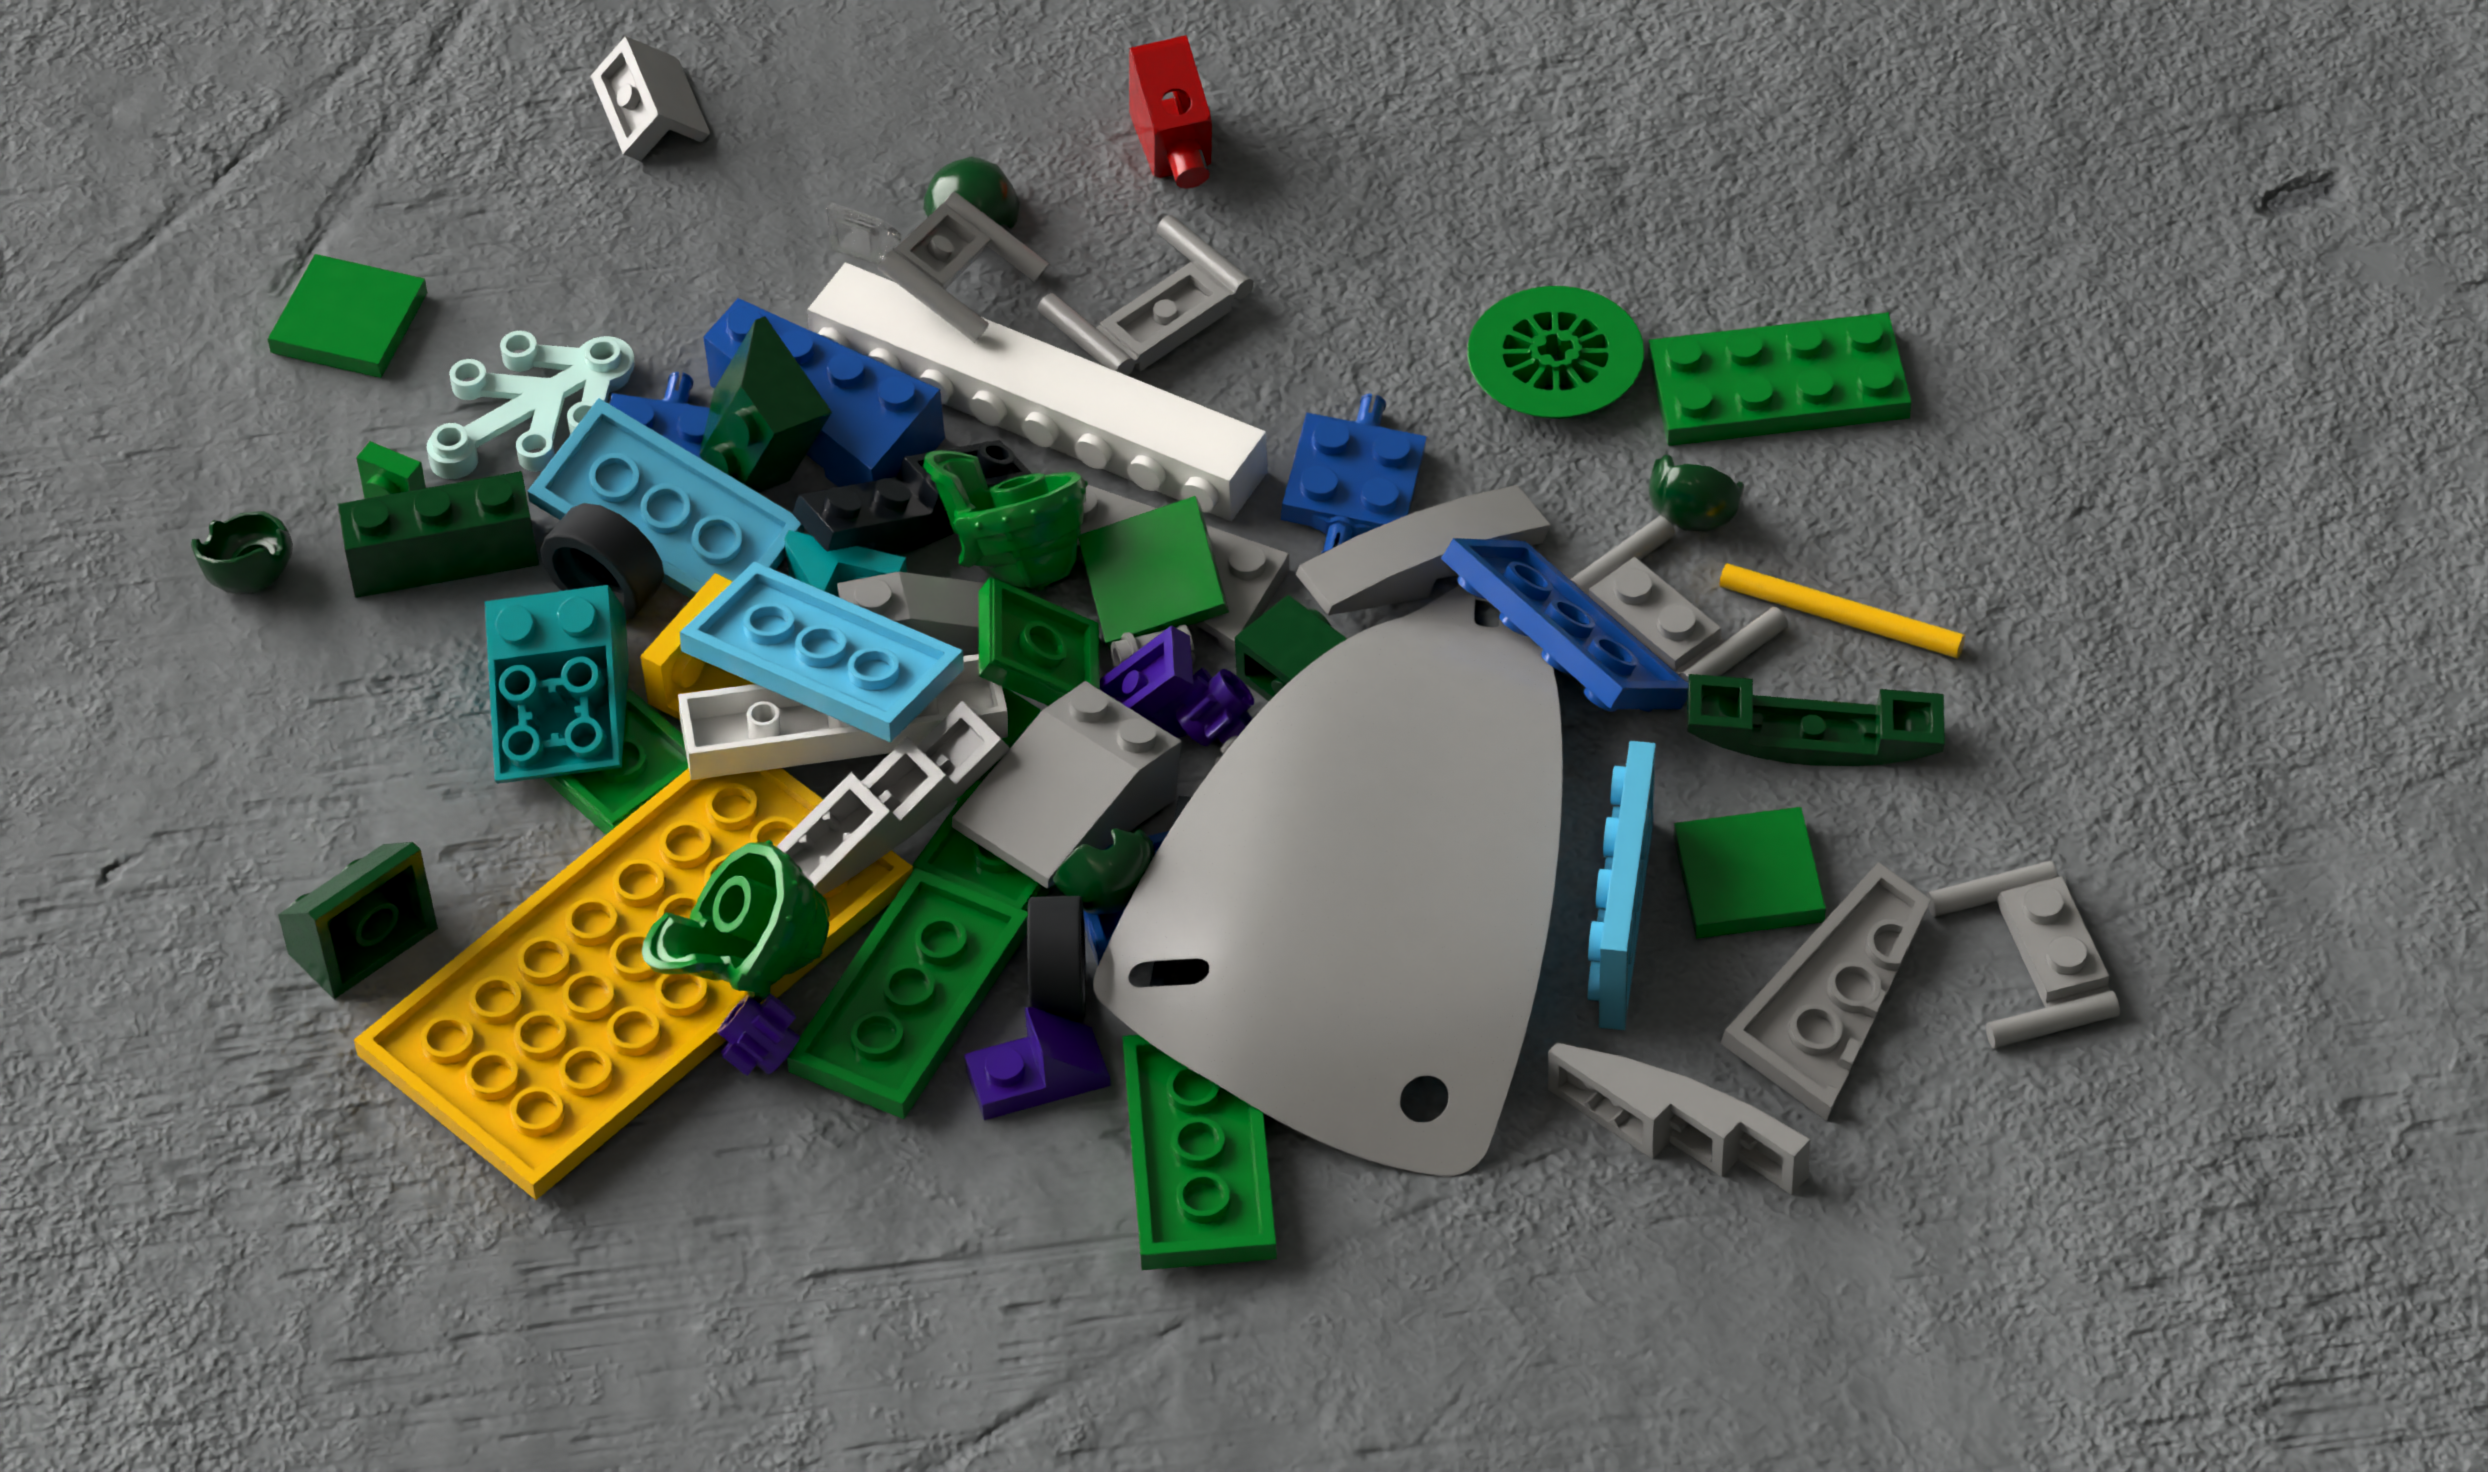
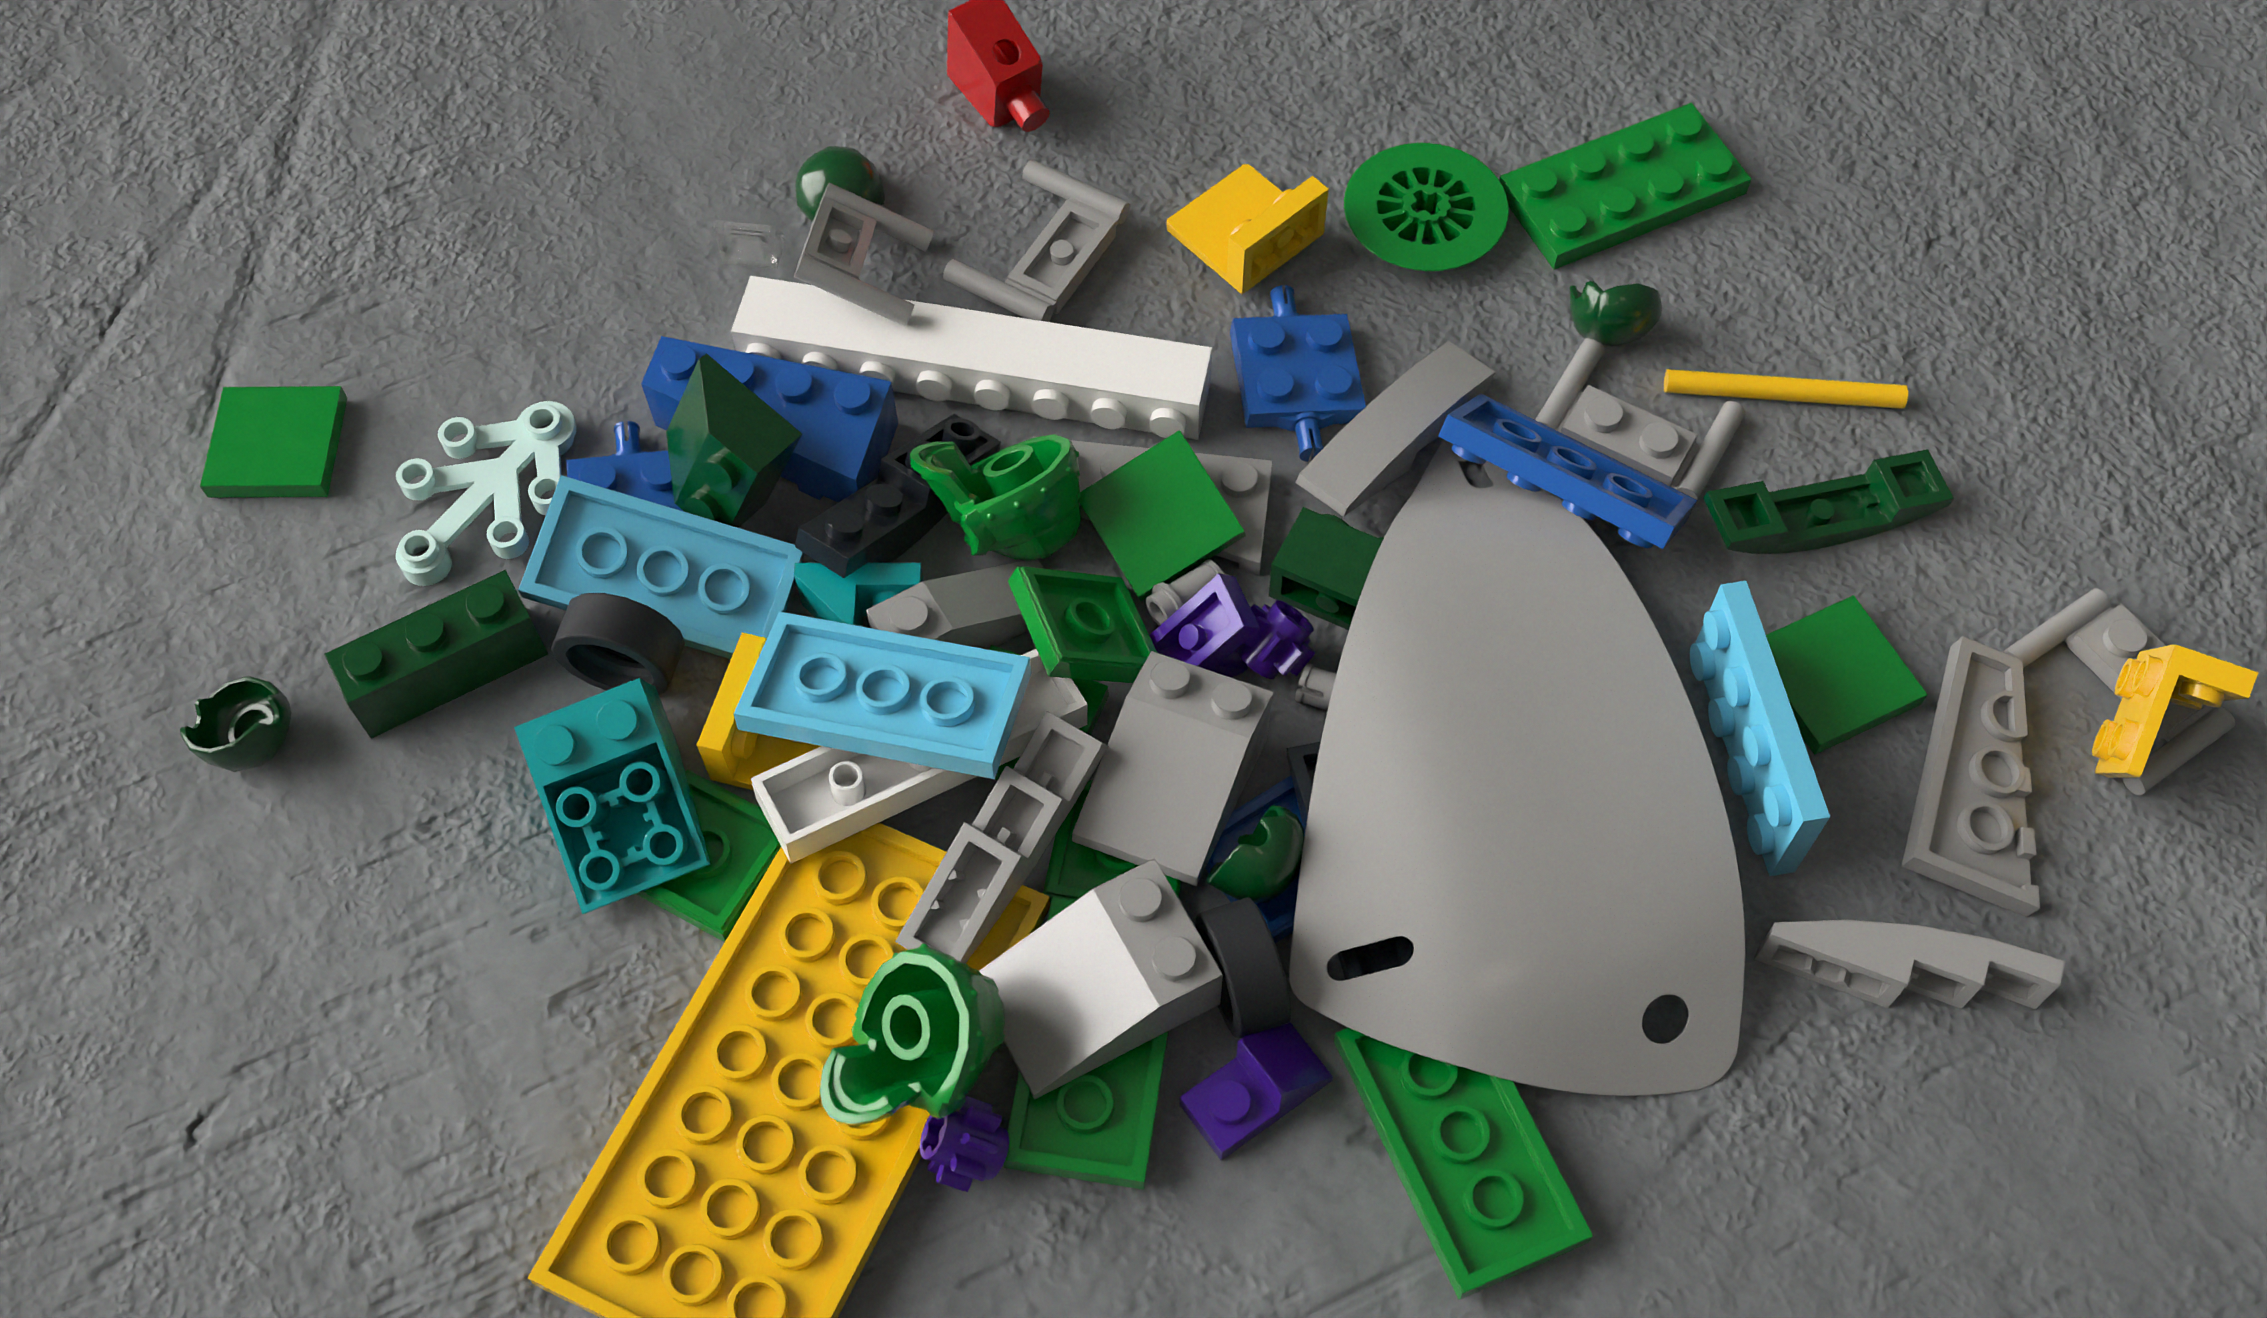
camera: 20 degrees left, 10 degrees up
(361, 917) = (487, 1122): dark green slope -> none
(388, 471) = (368, 602): green plate -> none
(646, 97) = (499, 159): light grey panel -> none
(927, 933) = (1102, 979): none -> light grey slope
(1367, 330) = (1250, 226): none -> yellow bracket
(2005, 933) = (2147, 688): none -> yellow bracket

